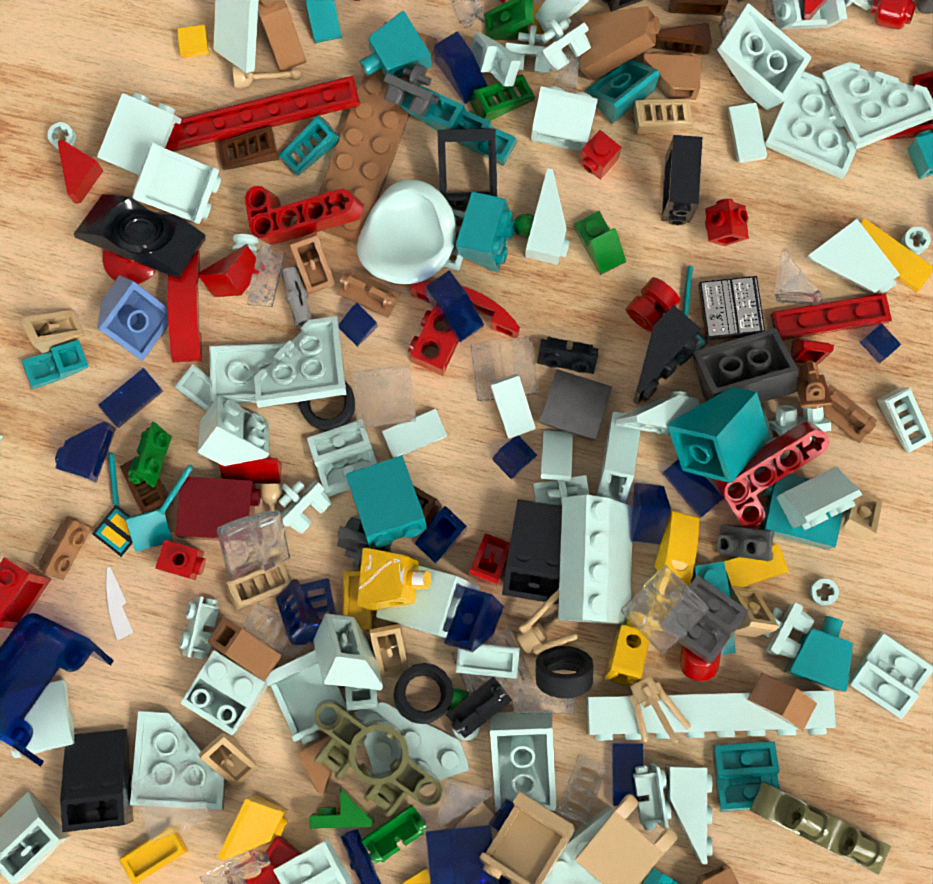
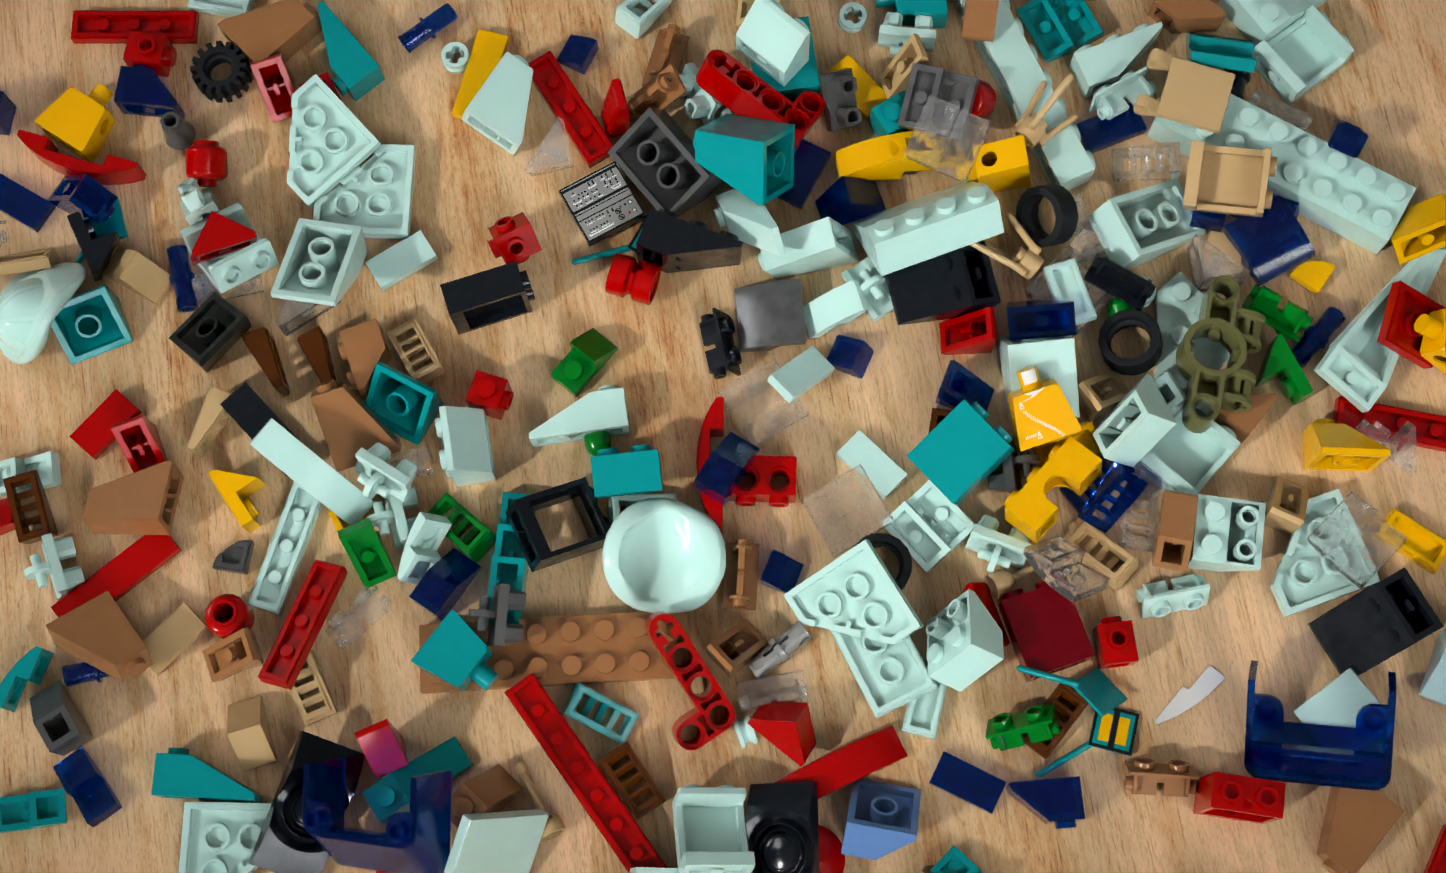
camera: 110 degrees left, 5 degrees down
(316, 538) = (1068, 466): none -> yellow arch

